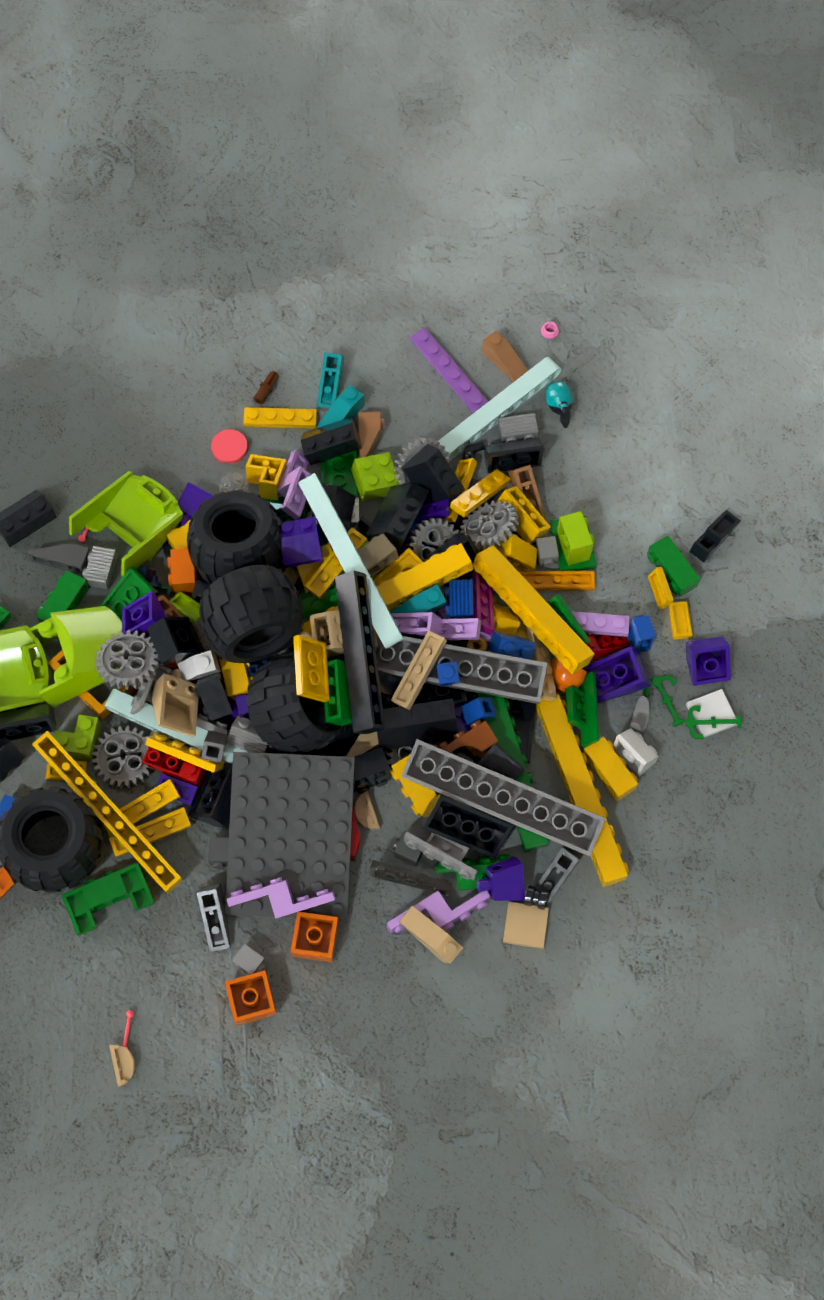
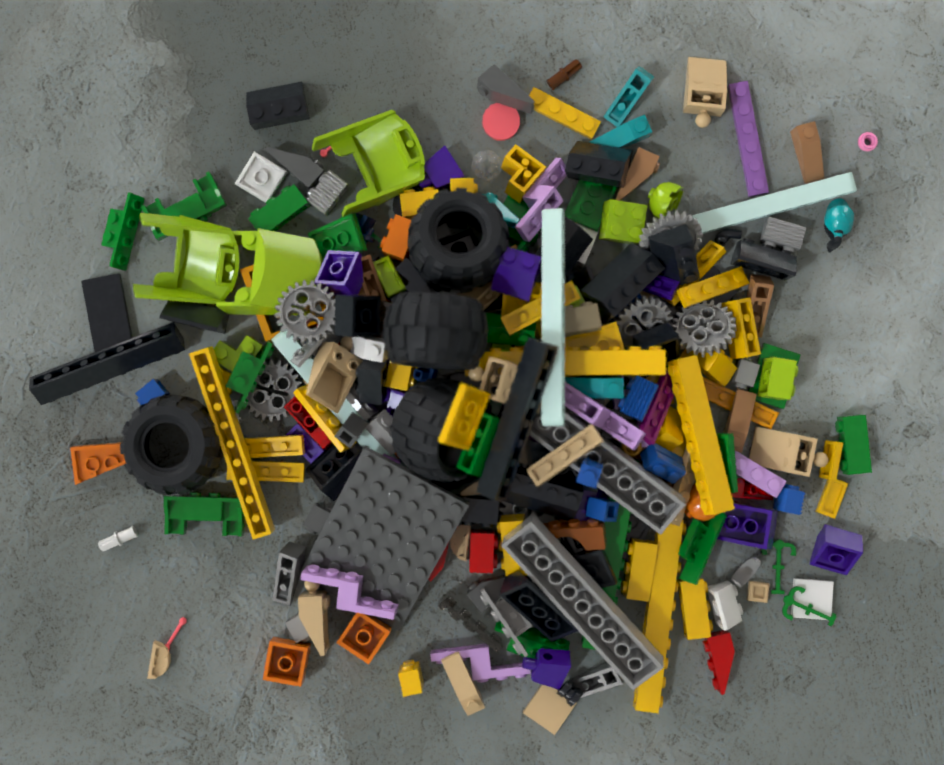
camera: 25 degrees right, 20 degrees up
(31, 963) = (118, 538): none -> white axle
(33, 582) = (261, 177): none -> white tile
(92, 745) = (245, 372): none -> green bracket
(219, 419) = (503, 90): none -> dark grey slope
(254, 934) = (314, 615): none -> tan slope
(378, 954) = (411, 678): none -> yellow brick
(388, 805) = (482, 551): none -> red brick
(392, 348) = (705, 89): none -> tan slope
(399, 438) = (664, 198): none -> lime cylinder
(542, 757) = (639, 569): none -> yellow brick
(561, 583) = (740, 417): none -> medium nougat slope
(613, 599) = (781, 451): none -> tan slope
(655, 797) = (721, 656): none -> red slope
(660, 730) = (758, 591): none -> tan tile
(714, 536) = (909, 432): black slope -> none

